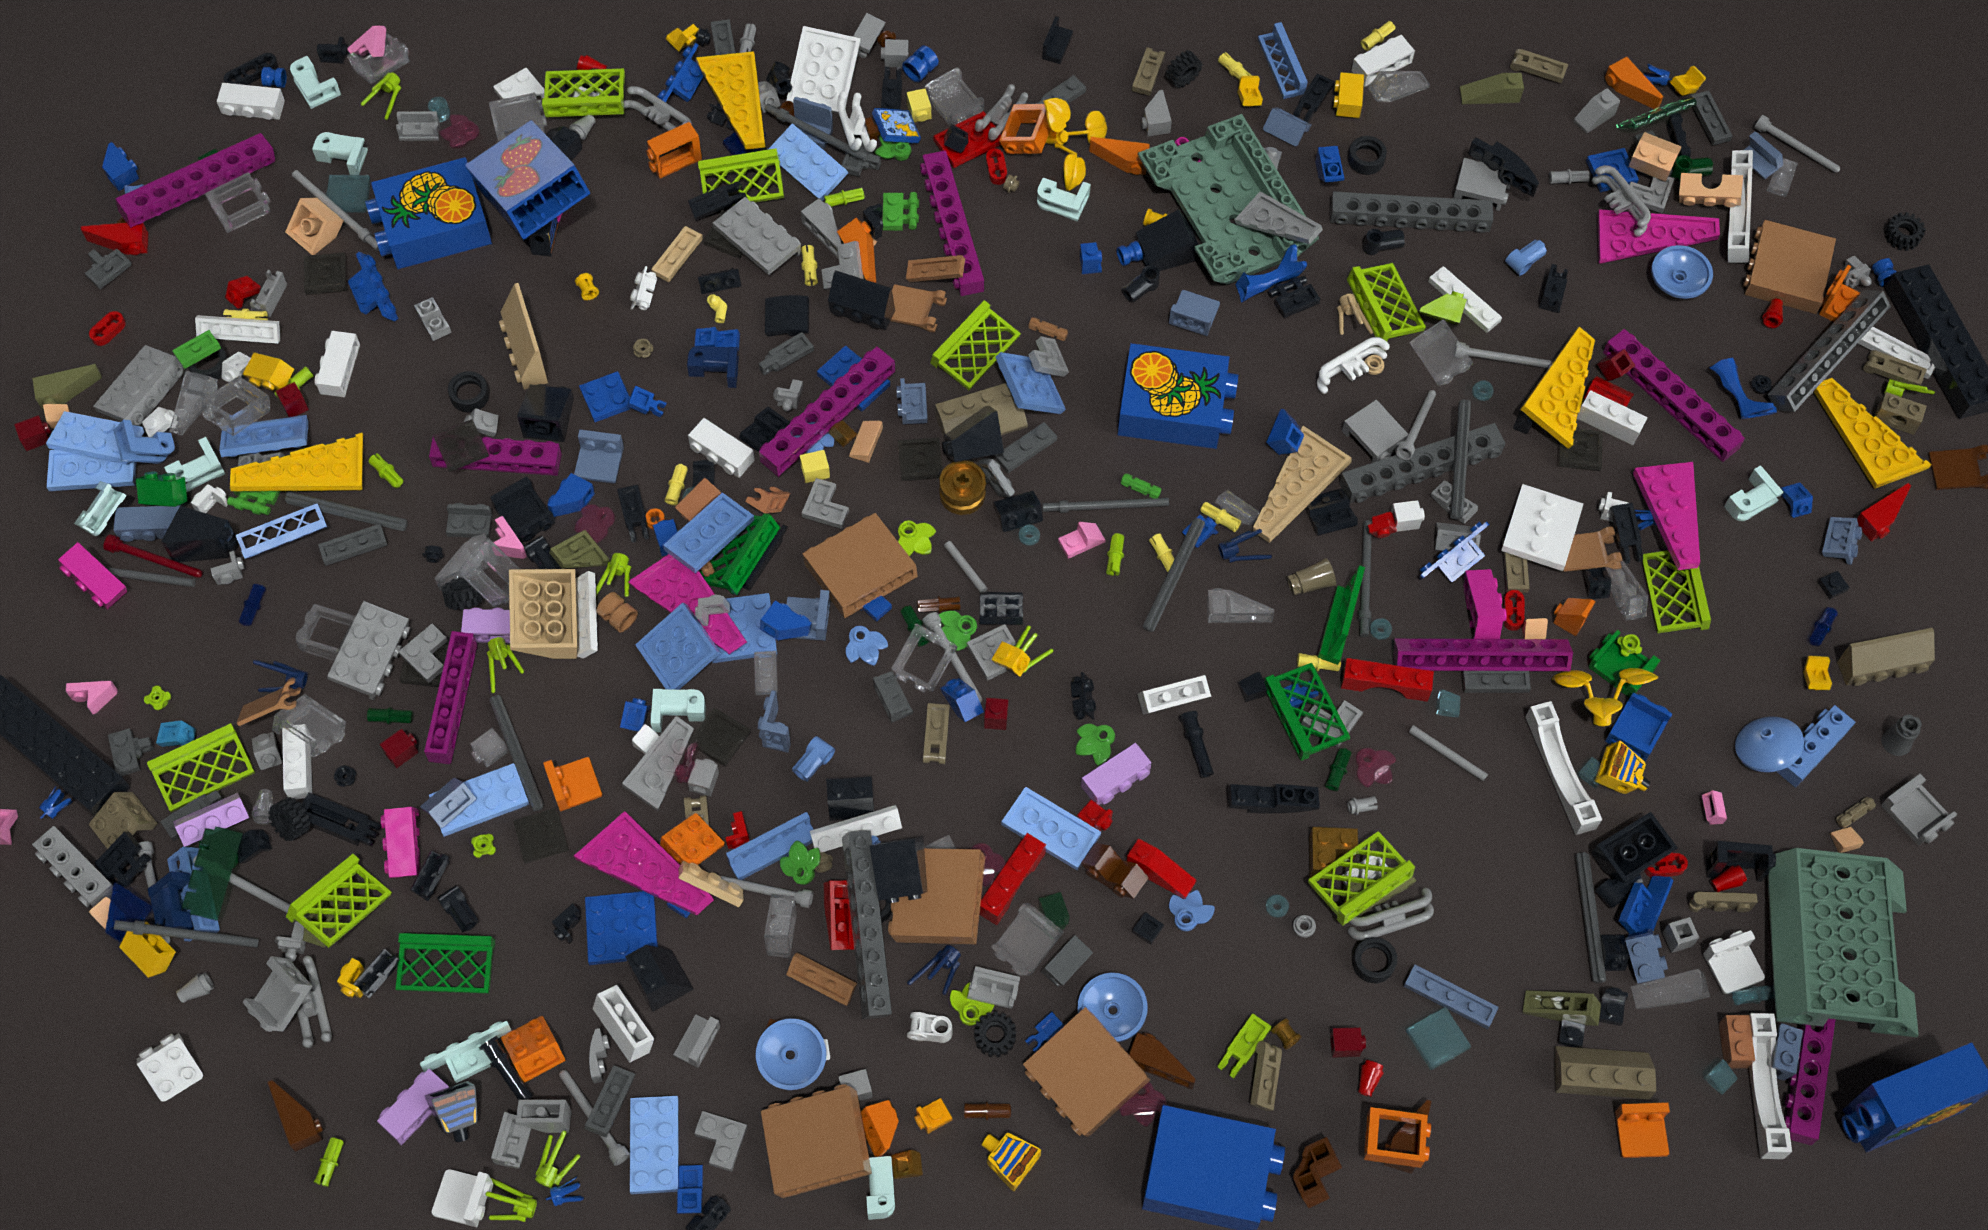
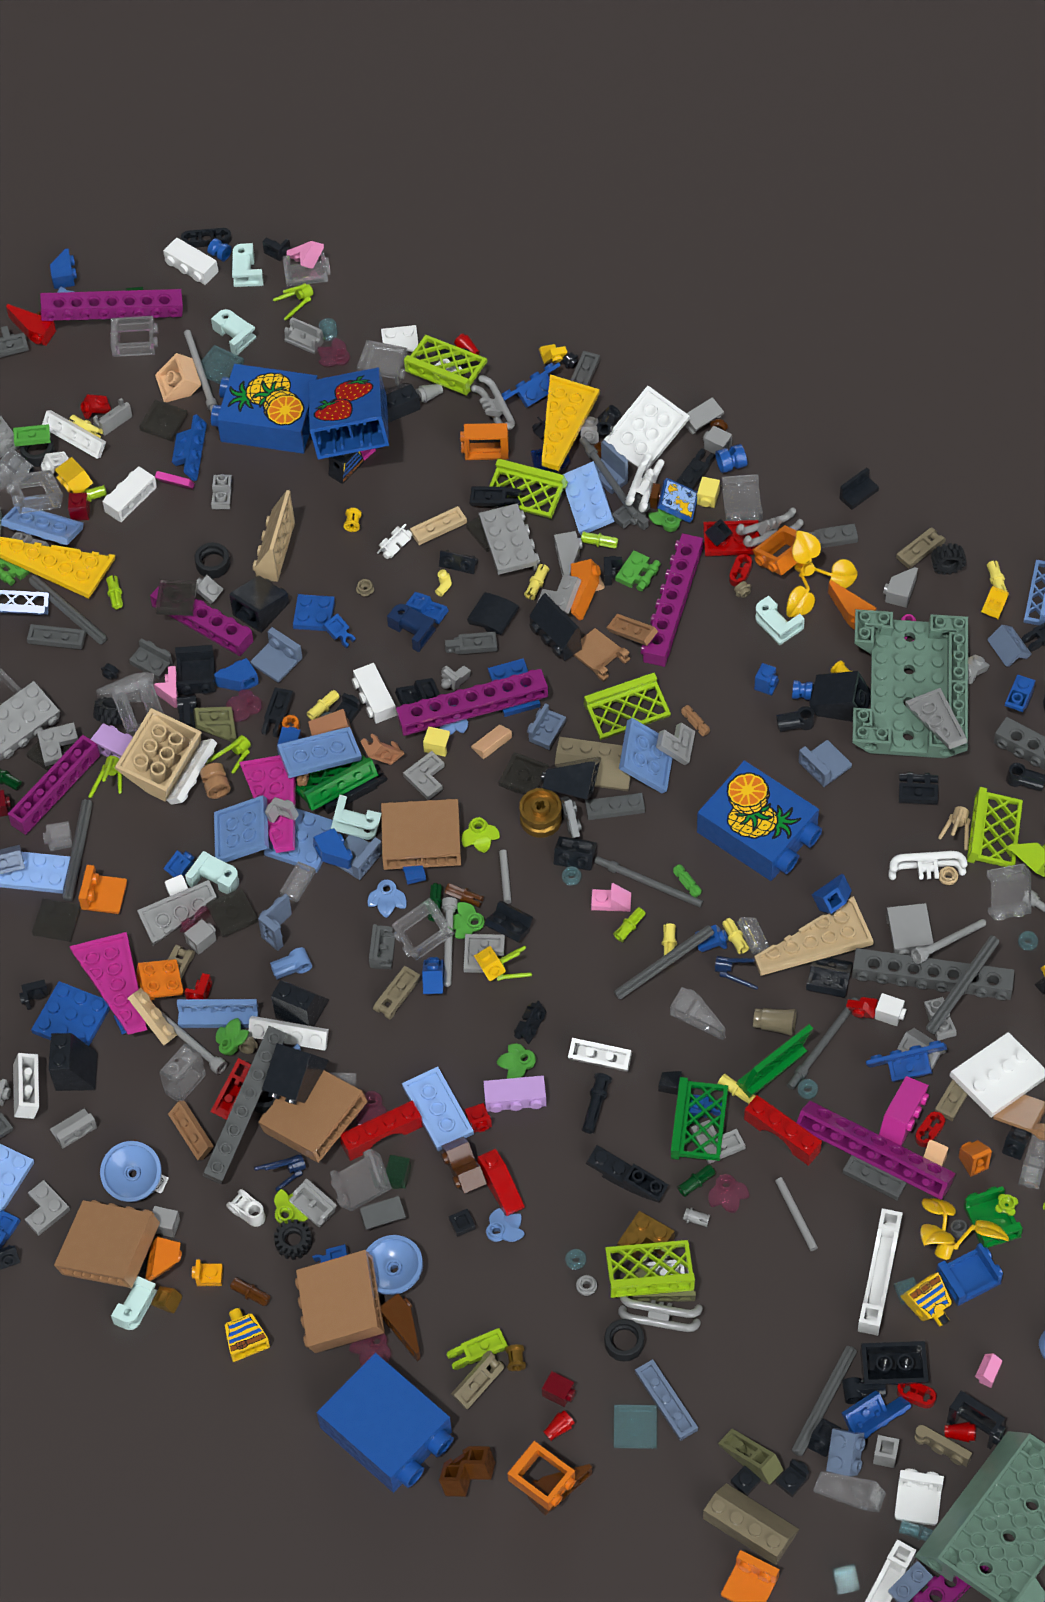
camera: 35 degrees right, 5 degrees down
(376, 328) = (175, 480): none -> dark pink tile
(478, 841) = (11, 901): lime plate -> none
(747, 40) = (605, 377): light grey axle -> none
(785, 586) = (354, 822): none -> light aqua piece
(842, 433) = (476, 725): pearl gold slope -> none
(996, 713) = (451, 1000): dark red brick -> none
(1289, 268) = (924, 764): blue animal -> none
(1448, 704) = (822, 1175): clear light blue slope -> none
(1597, 687) = (958, 1228): none -> dark grey hinge
(1737, 1041) = (874, 1558): nougat brick -> none

